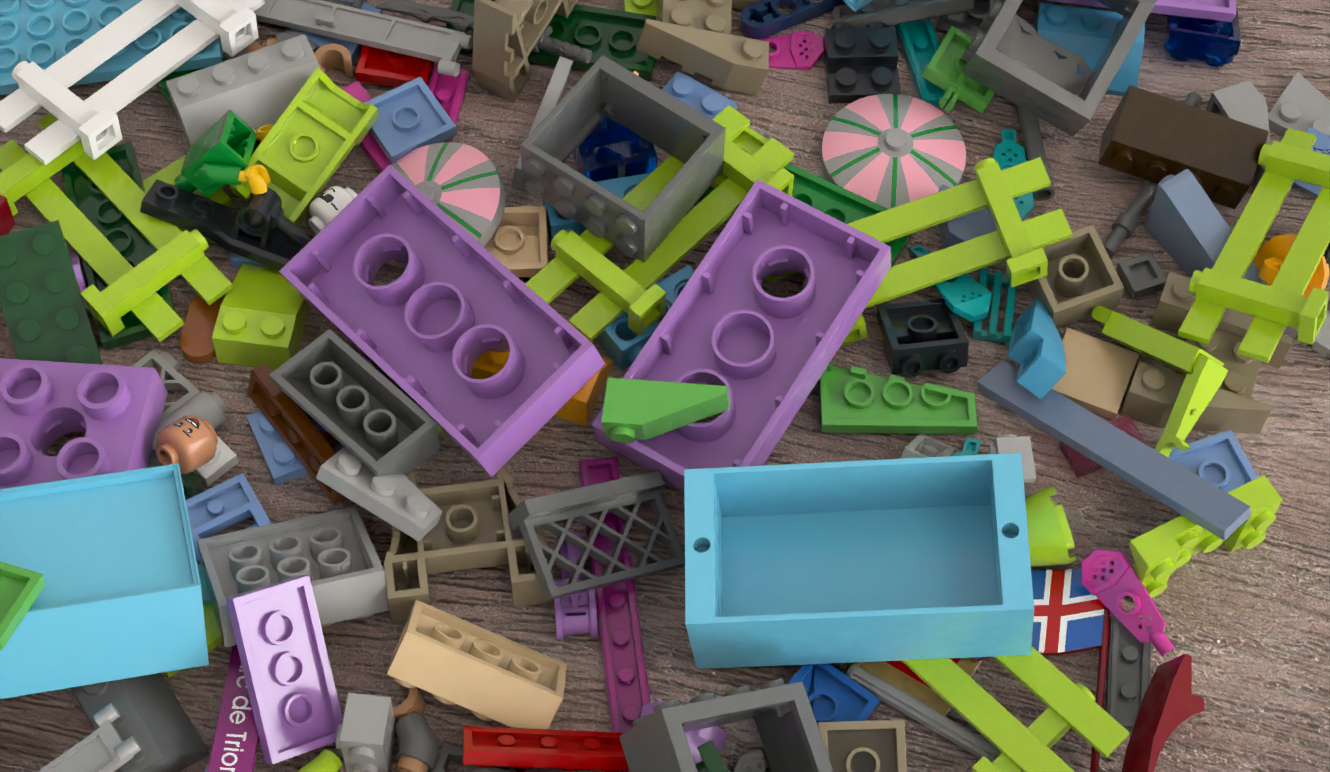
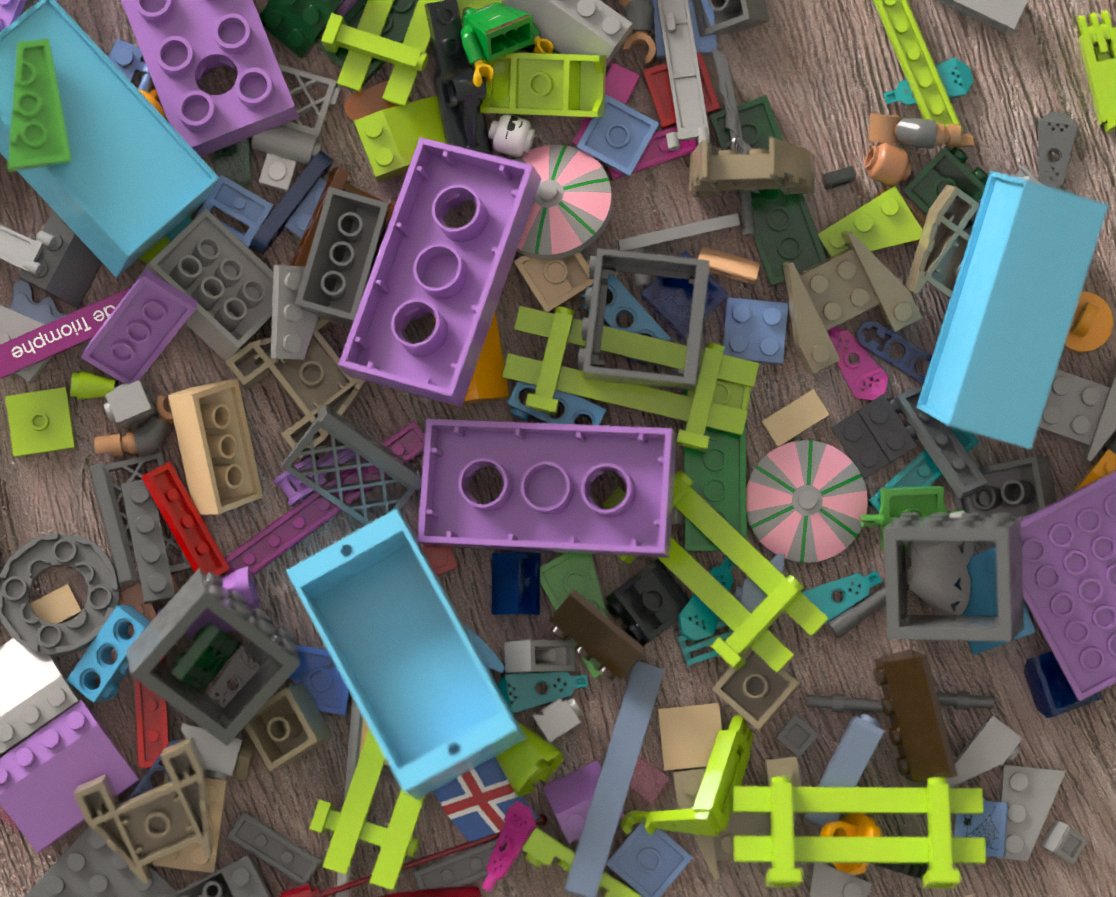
camera: 65 degrees right, 25 degrees up
(187, 442) = (263, 159): nougat head -> none
(253, 457) = (291, 201): none -> dark blue beam
(652, 408) = (447, 450): bright green slope -> none
(800, 122) = (795, 418): none -> tan tile
(822, 438) = (516, 583): none -> clear blue brick
(935, 381) = (596, 636): none -> dark brown slope
(1037, 350) = (674, 691): dark azure slope -> none
(1108, 510) = (572, 798): none -> medium lavender slope

